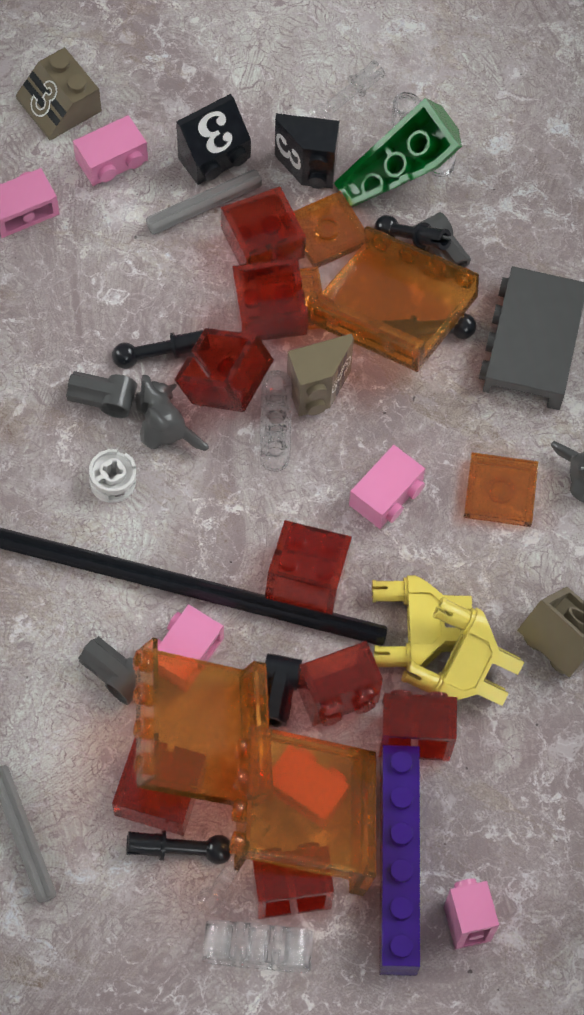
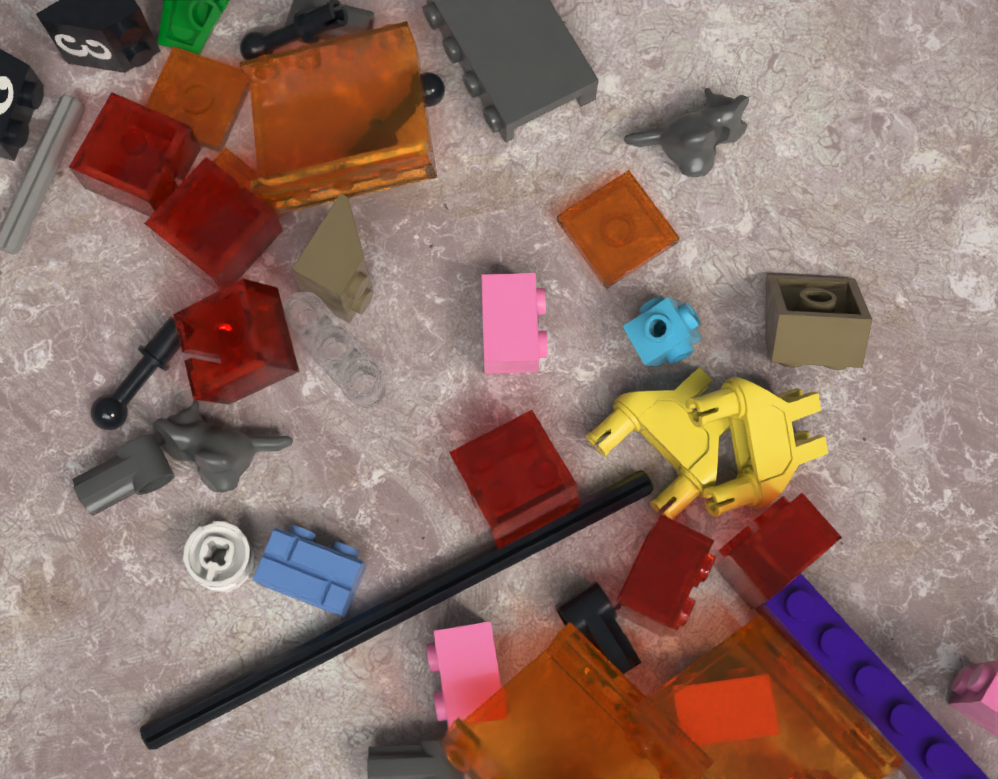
camera: 40 degrees left, 10 degrees up
(153, 524) = (310, 570): none -> medium blue brick
(469, 561) = (664, 331): none -> medium azure brick

